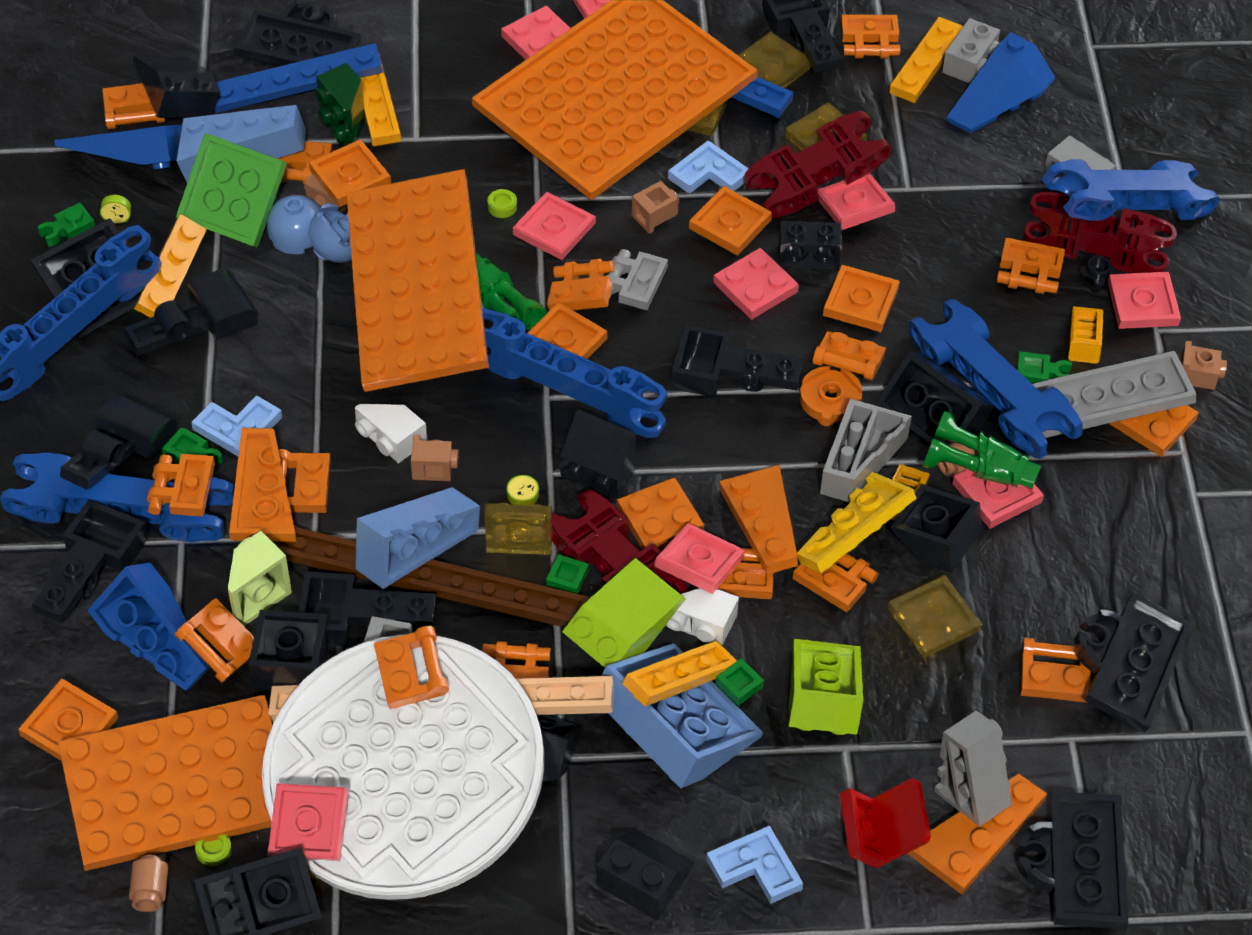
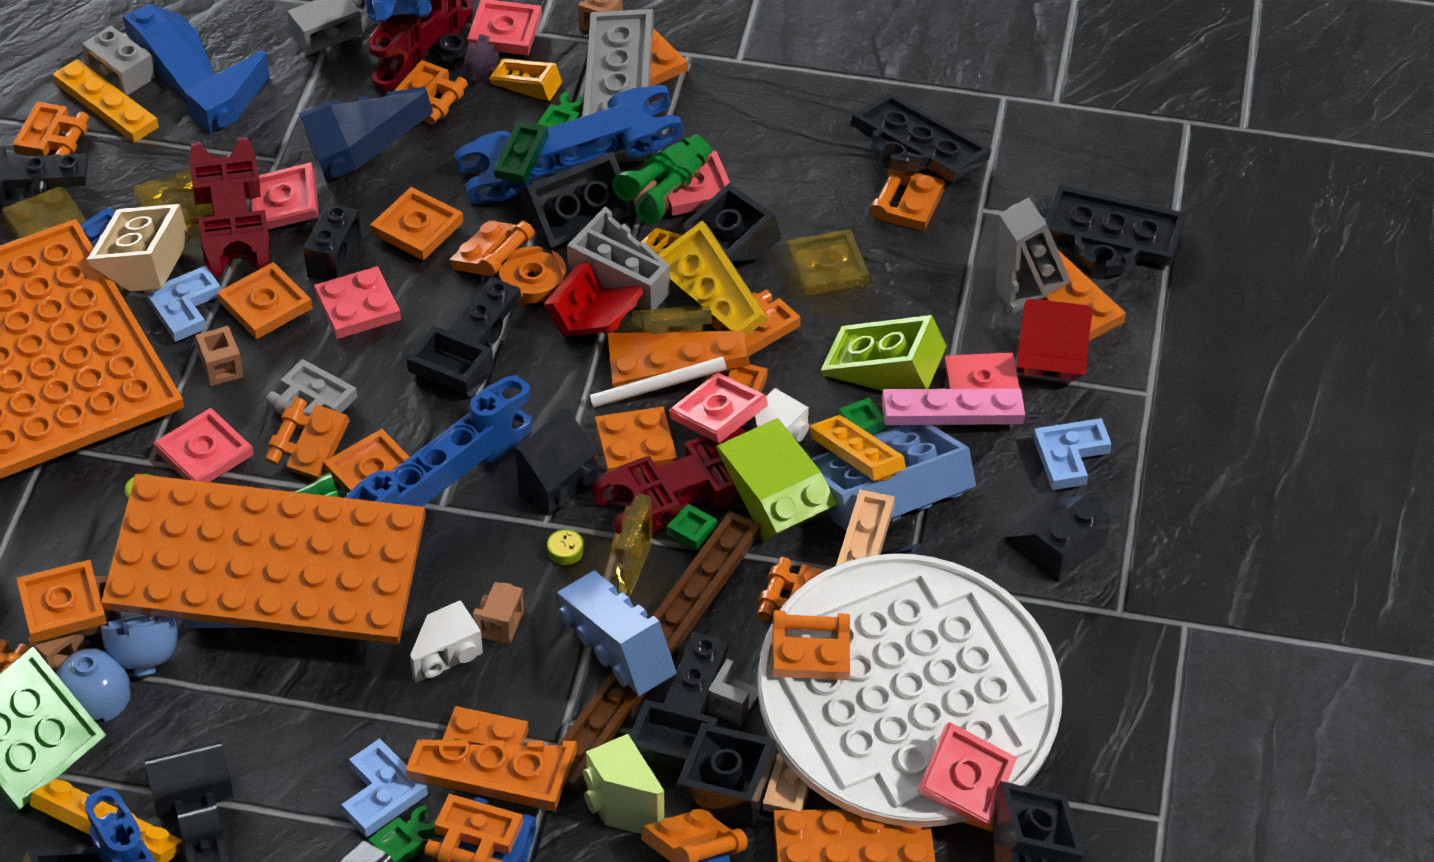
camera: 75 degrees left, 5 degrees down
(725, 512) = (658, 382): none -> white bar
(744, 119) = (141, 246): none -> tan slope
(772, 751) = (952, 406): none -> bright pink plate
(800, 499) = (659, 320): none -> clear yellow plate
(801, 437) = (585, 307): none -> red bracket
(822, 774) = (981, 371): none -> coral plate
(938, 222) = (354, 132): none -> dark blue wedge
(951, 337) = (521, 152): none -> dark green plate
(965, 131) = (228, 93): none -> blue slope
(1084, 288) = (481, 58): none -> clear purple plate

